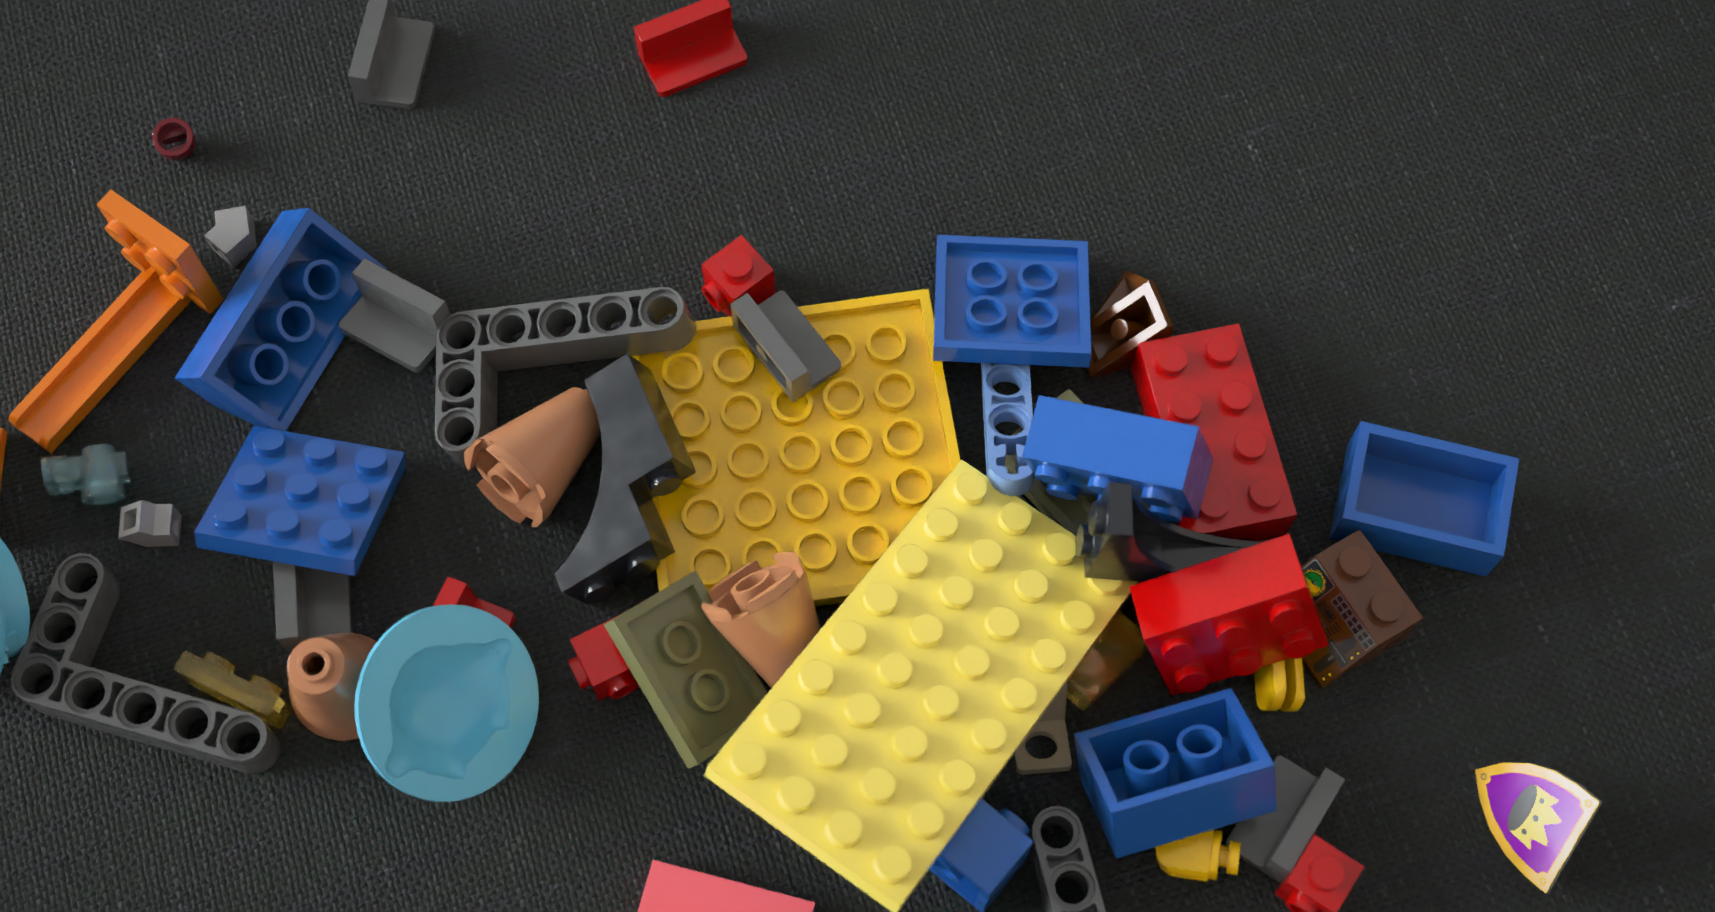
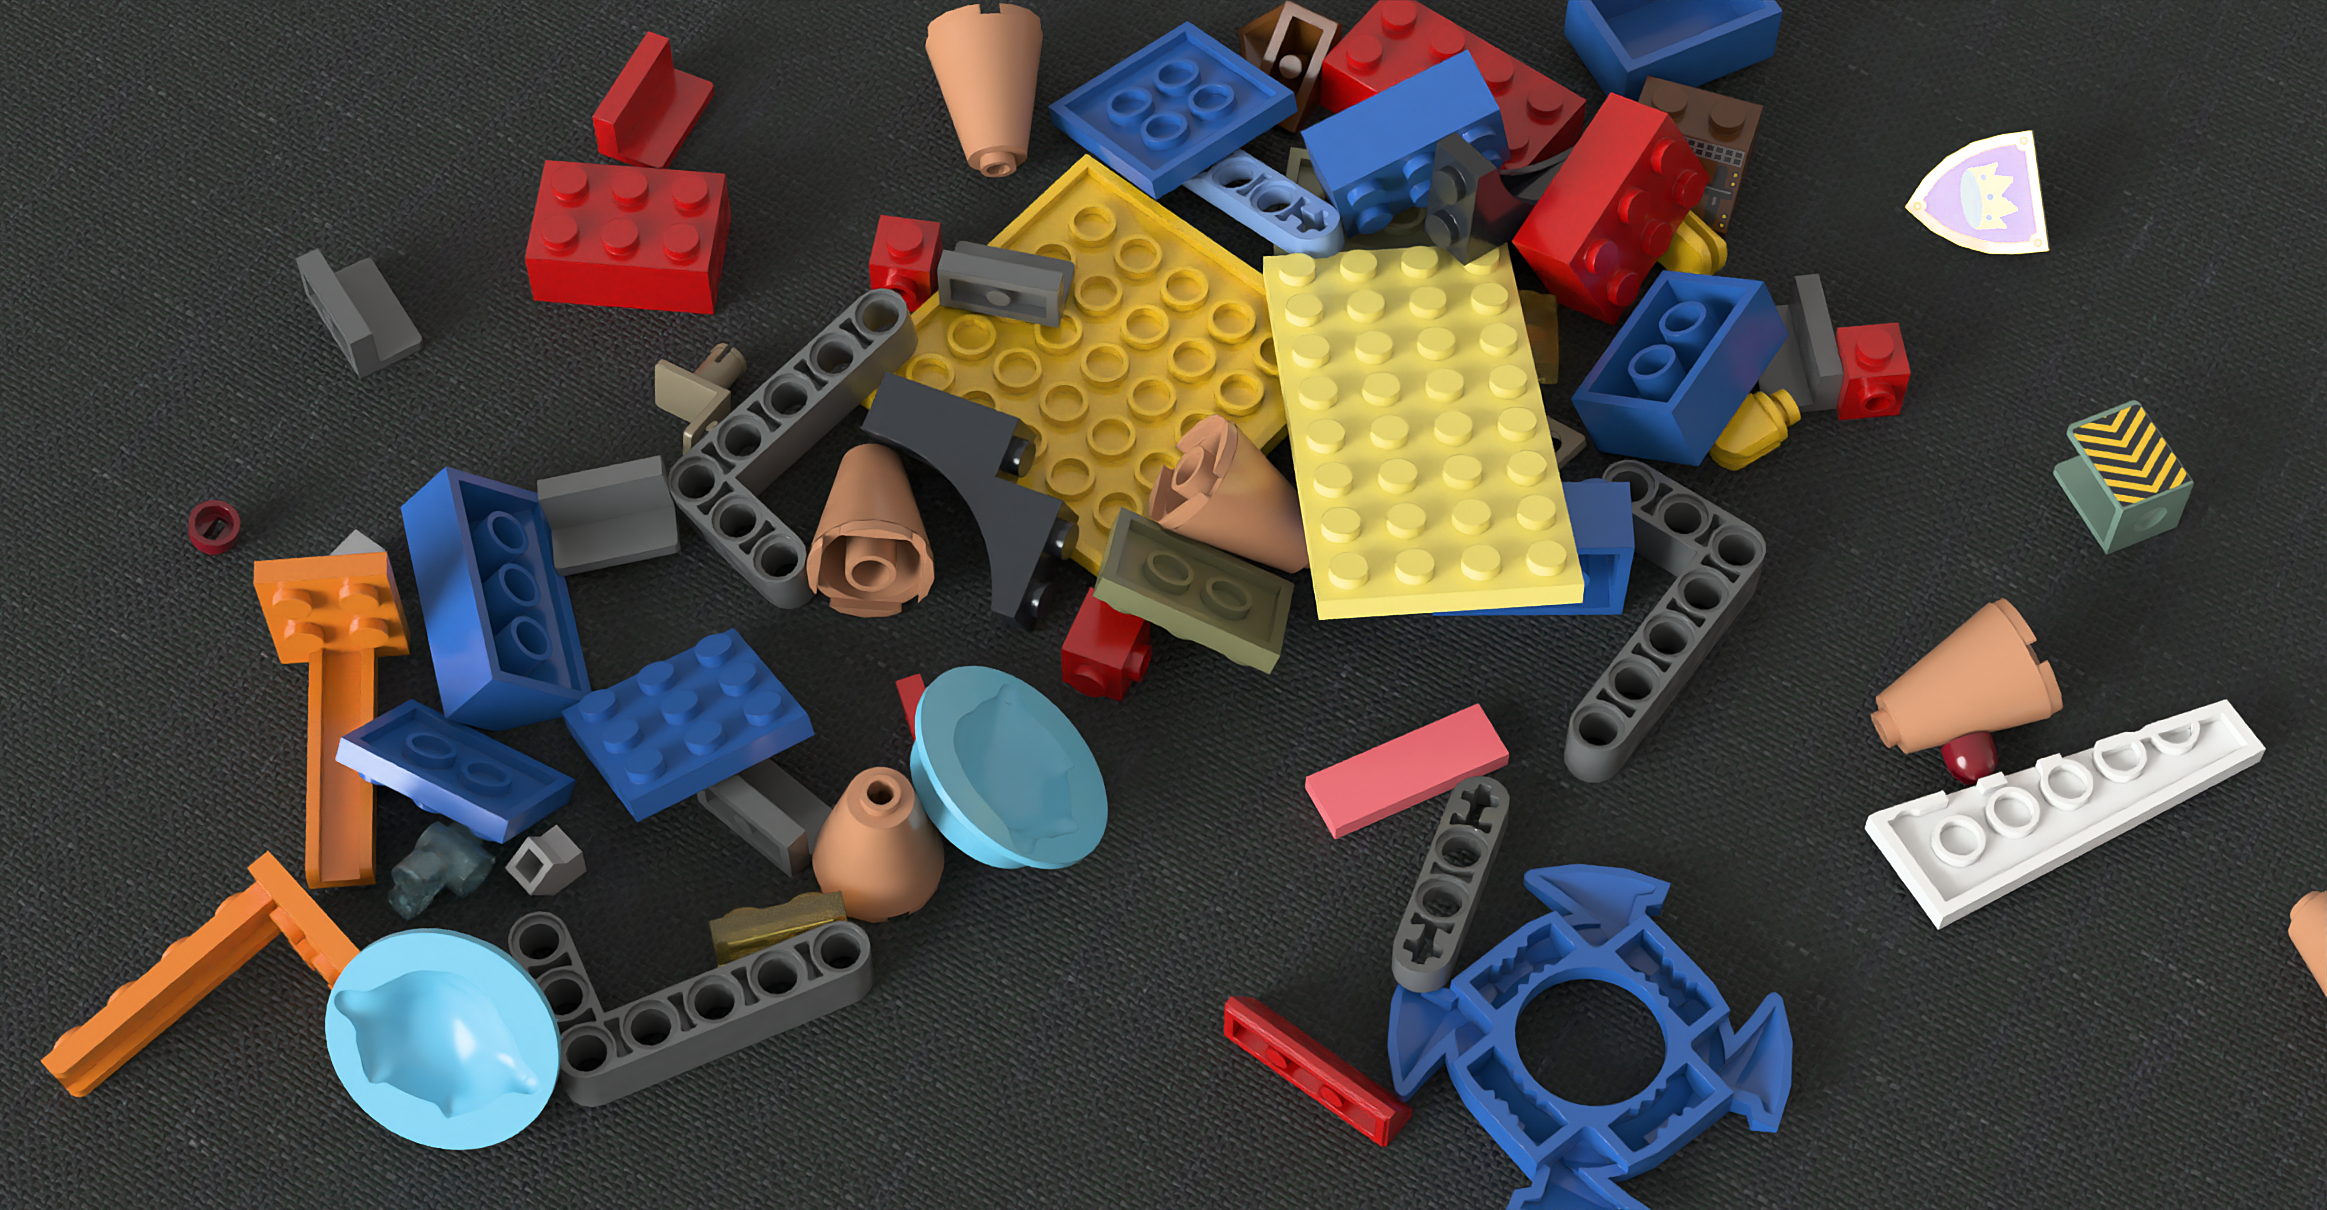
camera: 40 degrees left, 10 degrees down
(144, 420) = (455, 771): none -> blue plate
(532, 272) = (699, 395): none -> dark tan bracket
(587, 128) = (628, 237): none -> red brick
(906, 191) = (988, 81): none -> nougat cone

